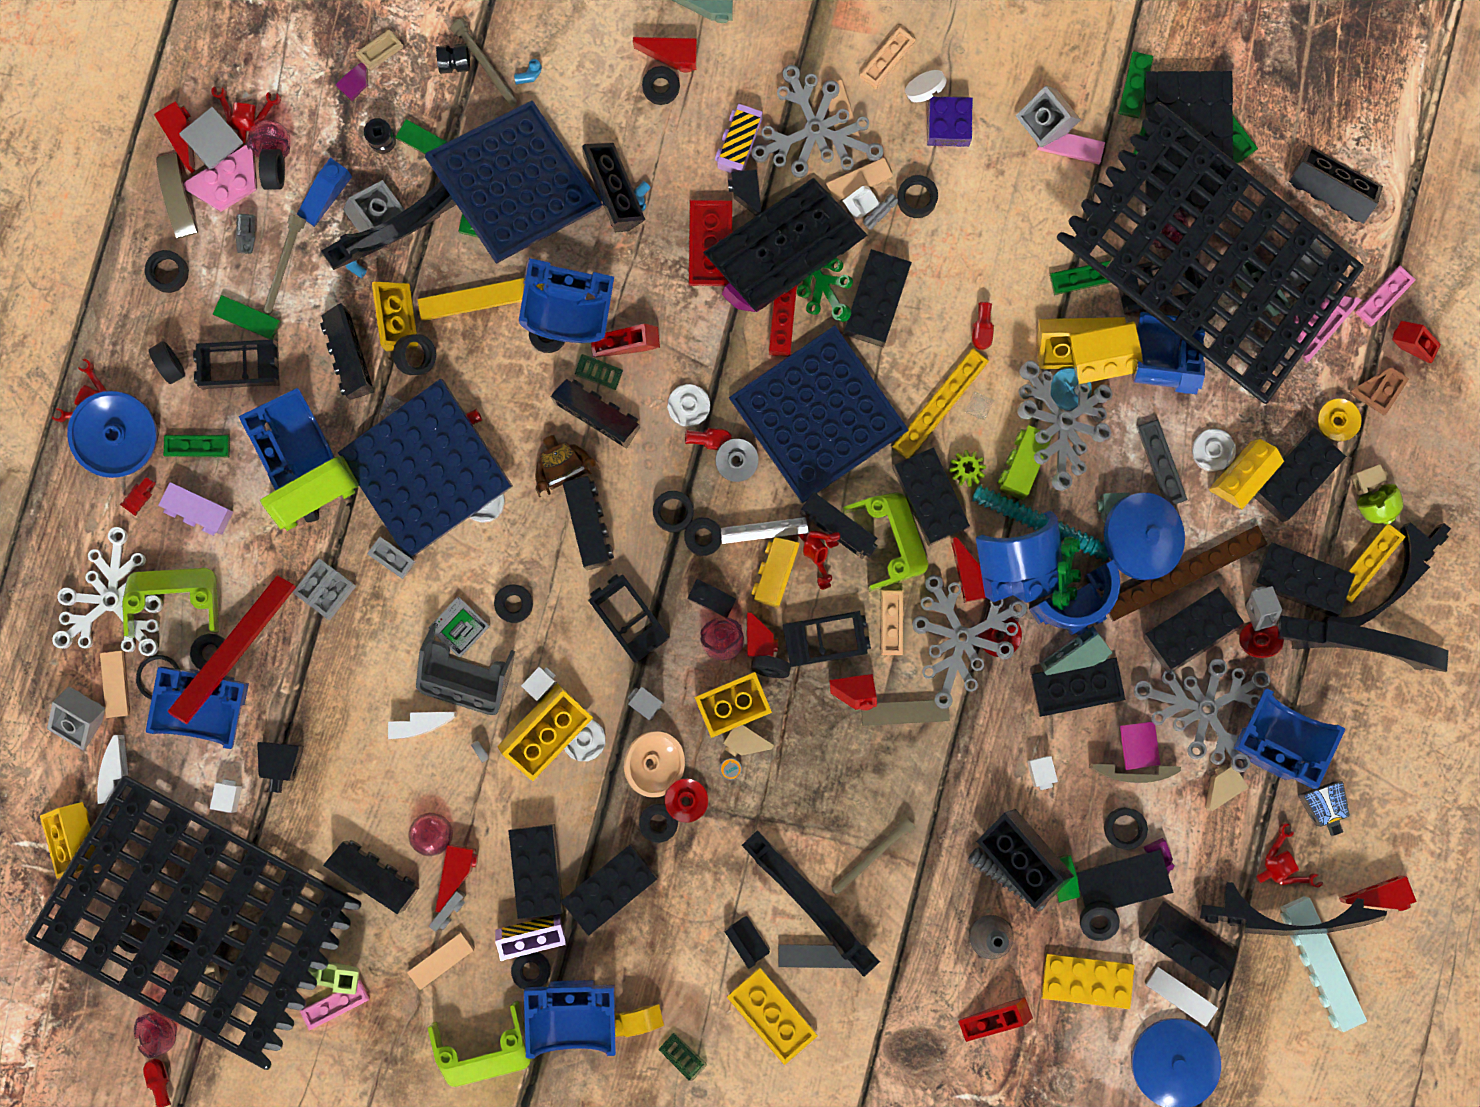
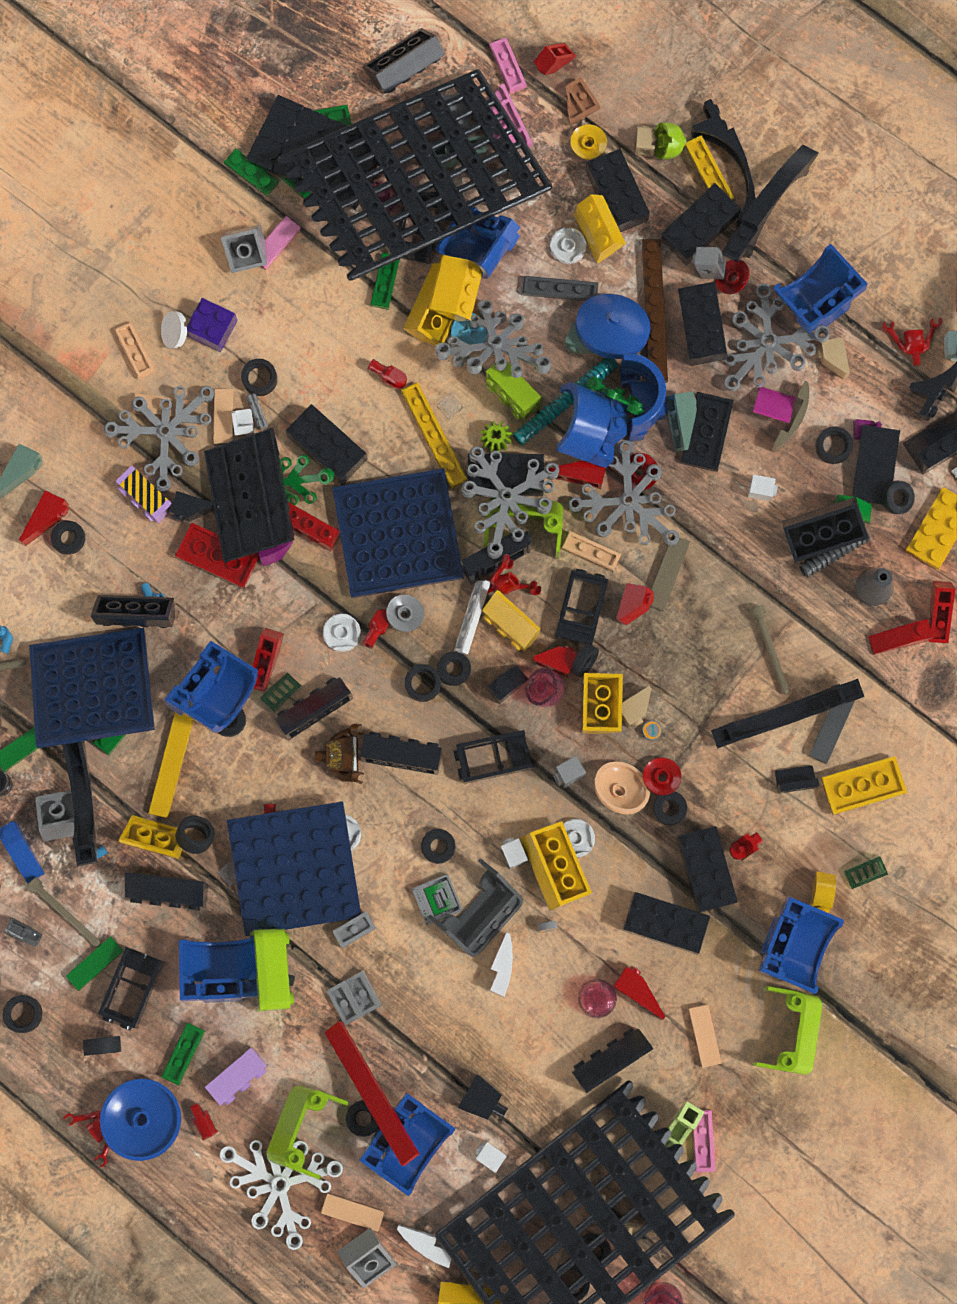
camera: 70 degrees left, 5 degrees down
(143, 664) = (347, 1180): black tyre -> none
(454, 904) = (671, 1017): light grey plate -> none
(530, 937) = (717, 951): lavender brick -> none
(544, 970) = (733, 960): black tyre -> none
(650, 918) = (745, 846): none -> red hips
(877, 512) = (502, 518): none -> light grey plant
(948, 988) = (901, 637): none -> red slope
(1327, 806) = (882, 287): torso -> none

